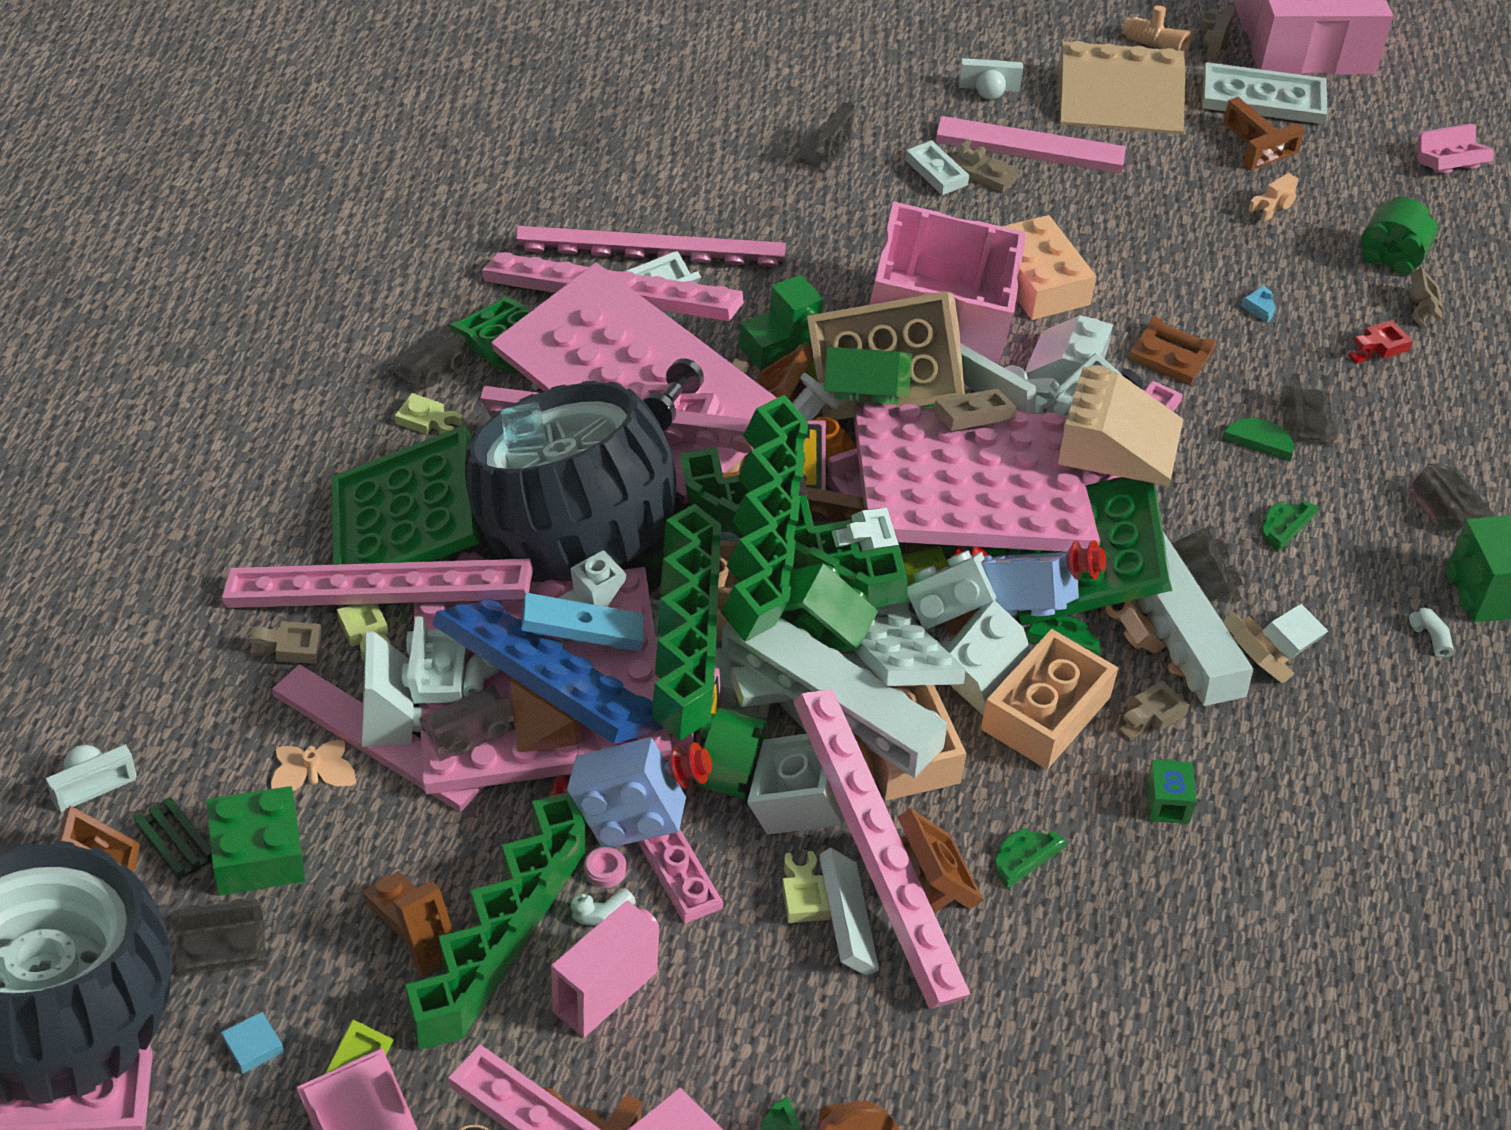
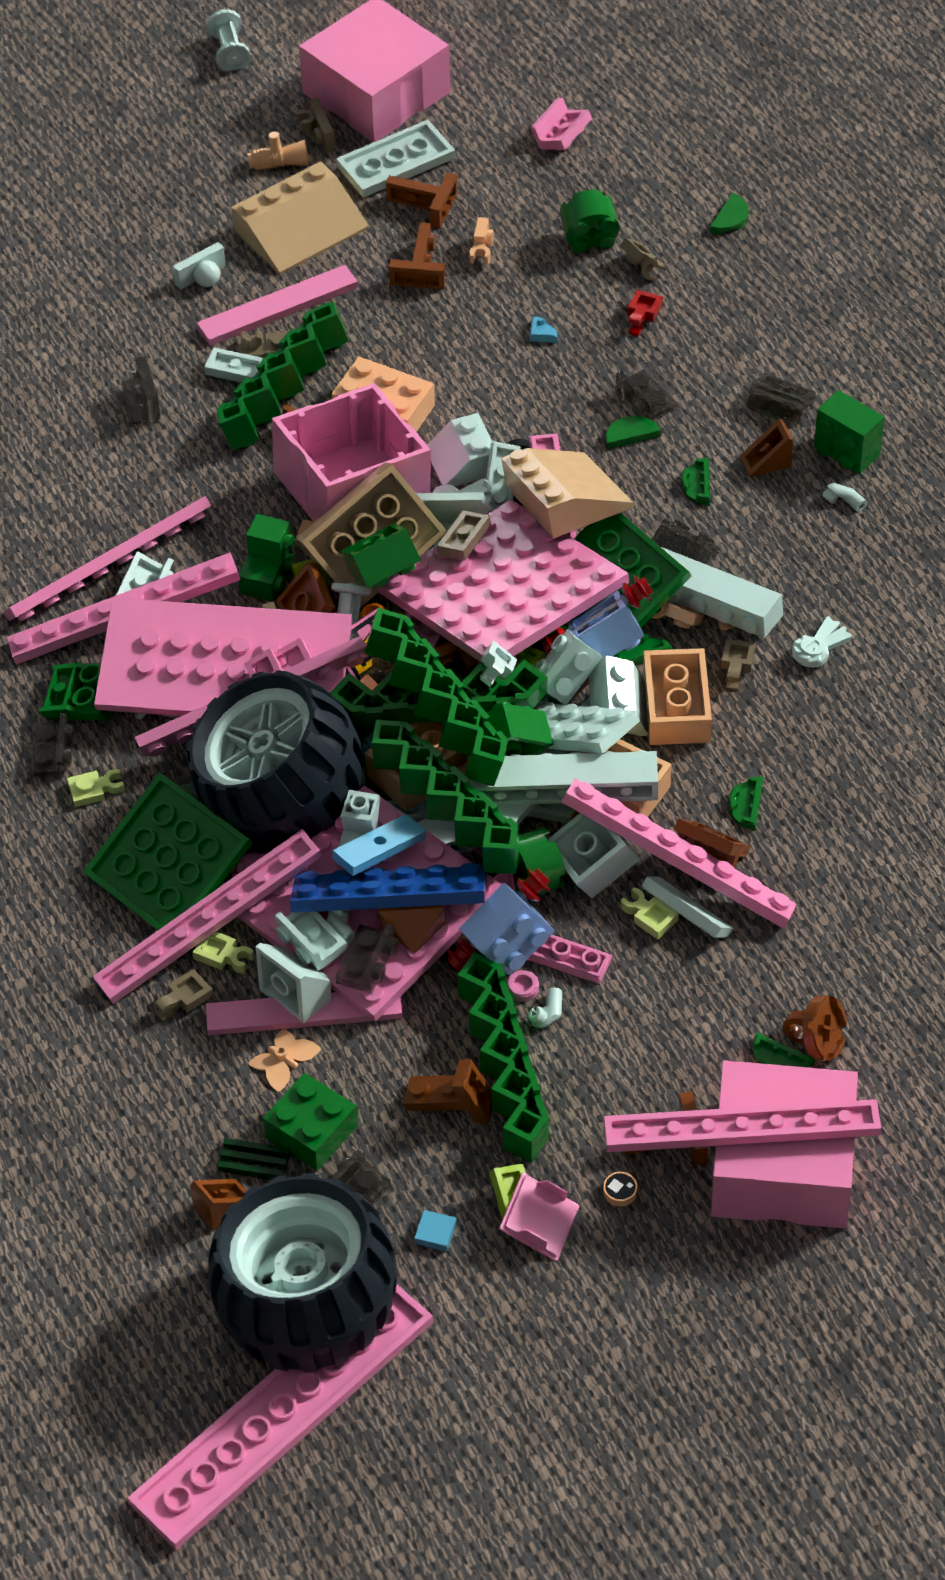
camera: 35 degrees left, 5 degrees up
(90, 774) = (160, 1161): light aqua tile -> none
(523, 425) = (223, 743): clear light blue plate -> none
(605, 968) = (597, 1036): bright pink brick -> none
(683, 377) = (272, 637): black wheel -> none
(972, 192) = (280, 375): none -> green brick
(1169, 358) = (520, 412): dark orange plate -> none
(1170, 791) = (793, 704): green brick -> none
(1195, 187) = (421, 270): none -> dark orange bracket
(1249, 755) = (814, 650): none -> light aqua piece
(1263, 652) = (769, 577): tan plate -> none
(1294, 631) = (777, 553): light aqua tile -> none
(1387, 539) = (770, 451): none -> dark orange slope

